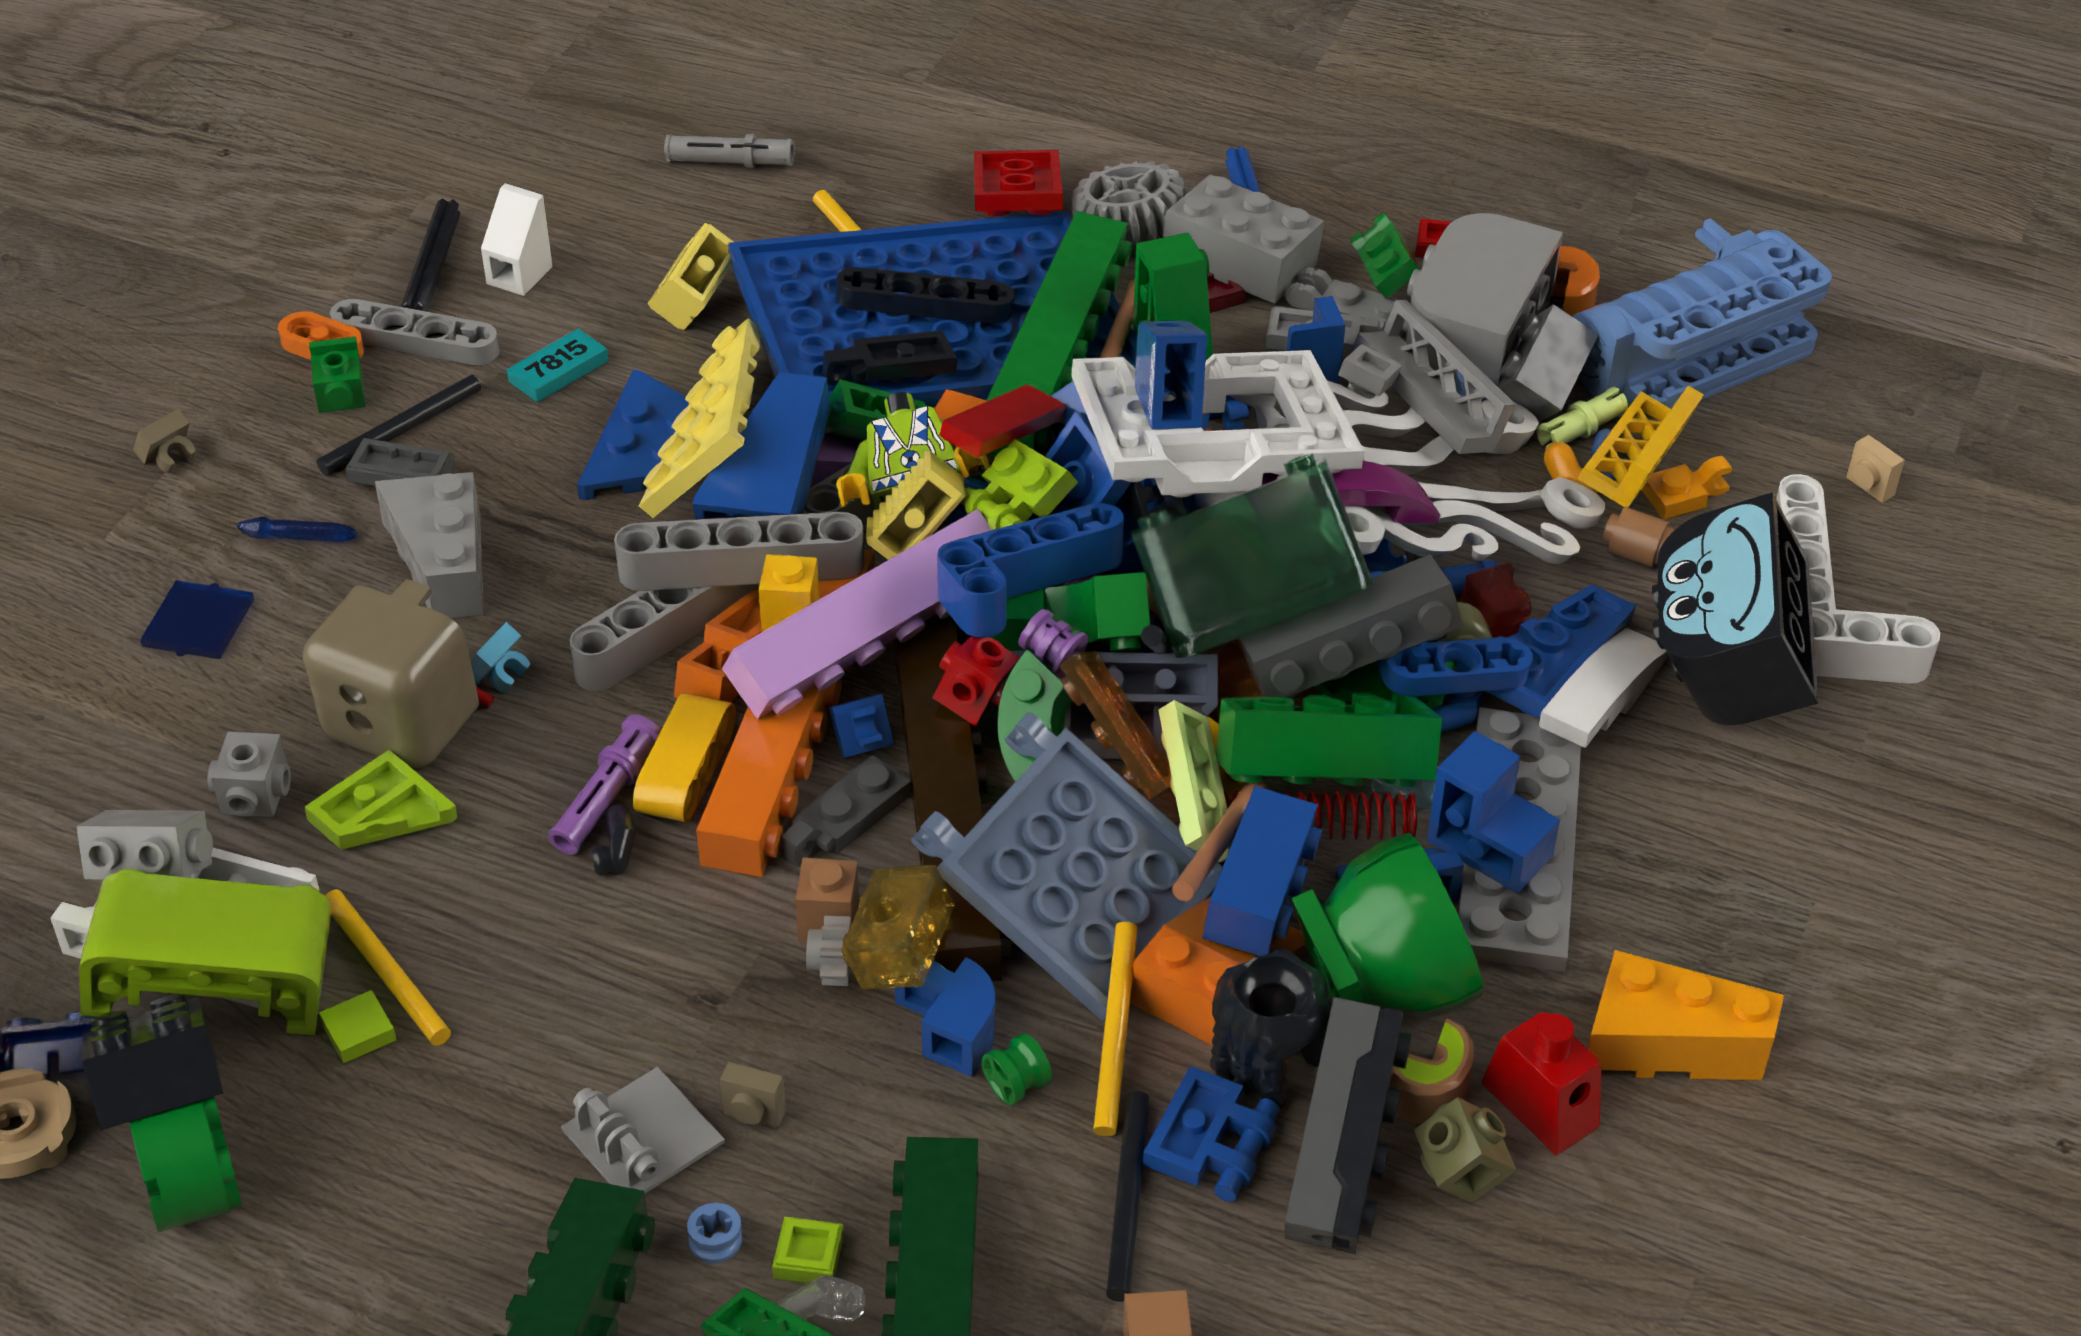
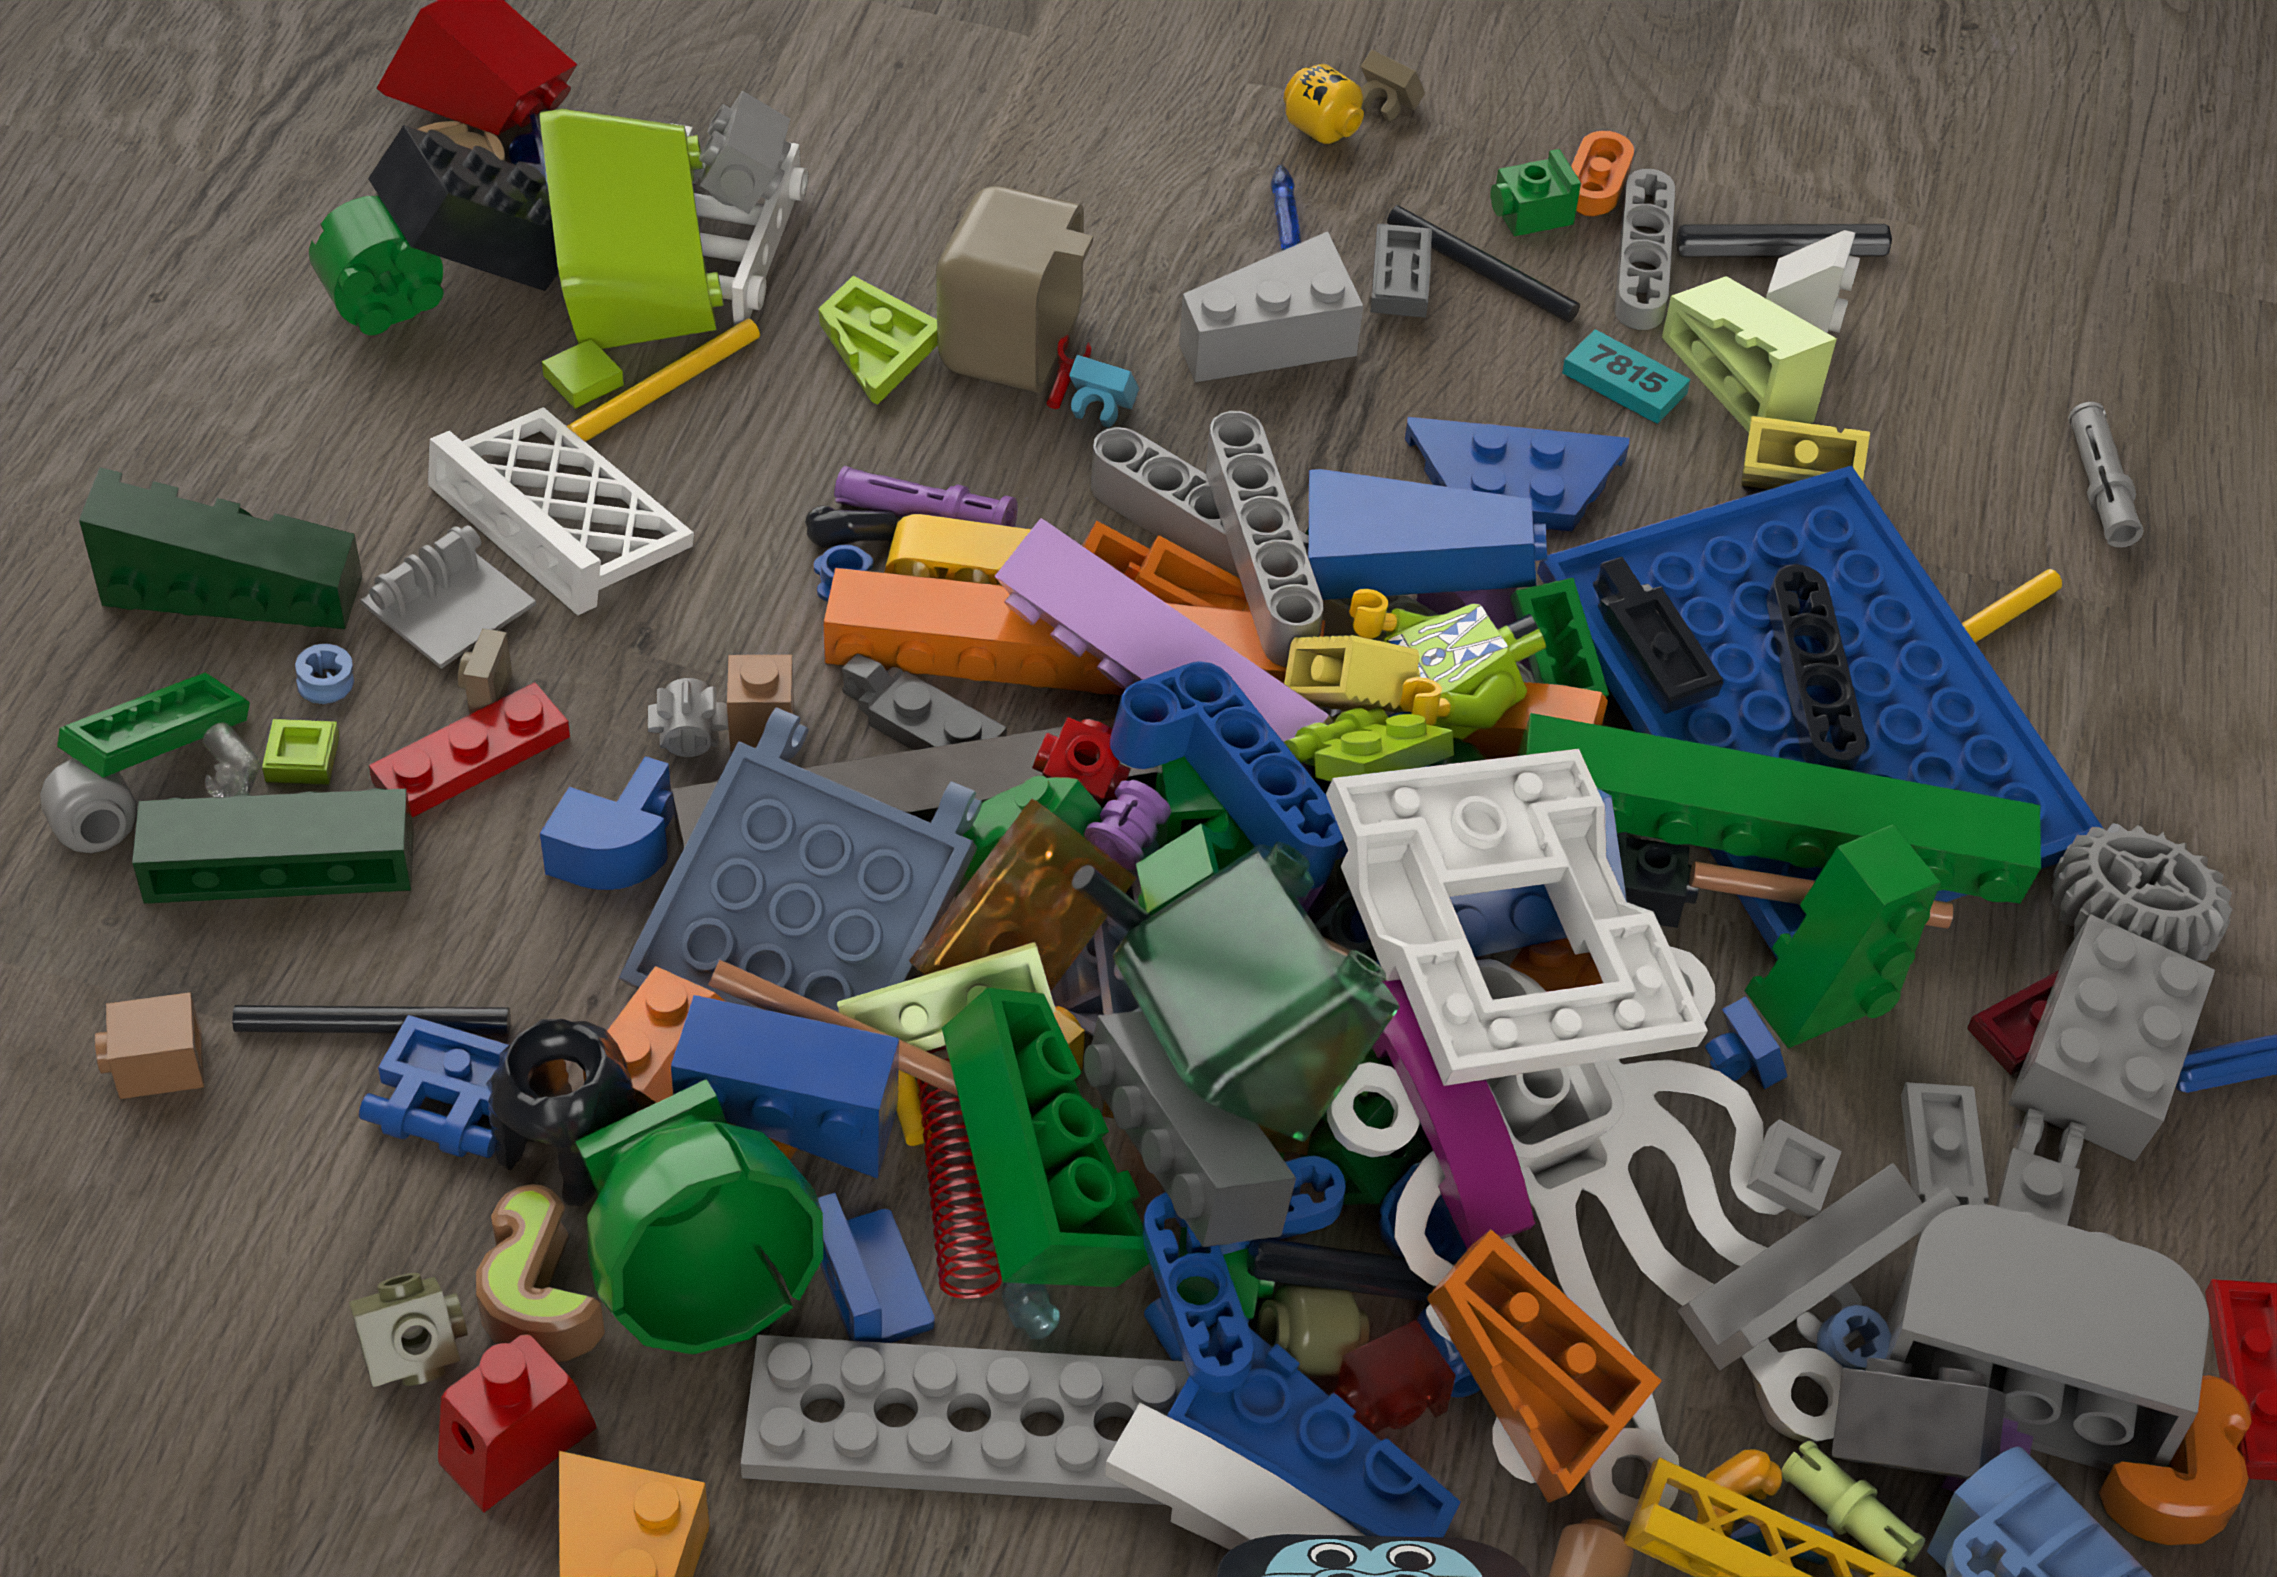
camera: 80 degrees right, 5 degrees up
(181, 479) = (1324, 103): none -> yellow head
(197, 619) = (1138, 168): clear blue piece -> none
(250, 774) = (889, 228): light grey brick -> none
(551, 1071) = (524, 523): none -> white fence
(571, 284) = (1750, 351): none -> yellowish green wedge
(672, 847) = (839, 557): none -> blue plate
(710, 424) = (1512, 477): light yellow wing -> none
(786, 587) = (1191, 578): yellow brick -> none
(832, 1123) = (472, 749): none -> plate
(861, 725) = (1044, 701): blue tile -> none
(897, 927) = (673, 734): clear yellow brick -> none
(1002, 420) = (1476, 705): red tile -> none
(1017, 182) = (2143, 766): red plate -> none
(1017, 1069) = (530, 895): green wheel -> none
(1115, 1030) = (581, 979): yellow bar -> none
(1173, 363) = (1513, 812): blue torso -> none
(1322, 337) = (1866, 1127): blue panel -> none
(1345, 1126) = (417, 1187): piece -> none
(1385, 255) = (2144, 1215): green plate -> none
(1483, 817) = (923, 1330): blue brick -> none
(1532, 500) = (1540, 1362): none -> orange wedge

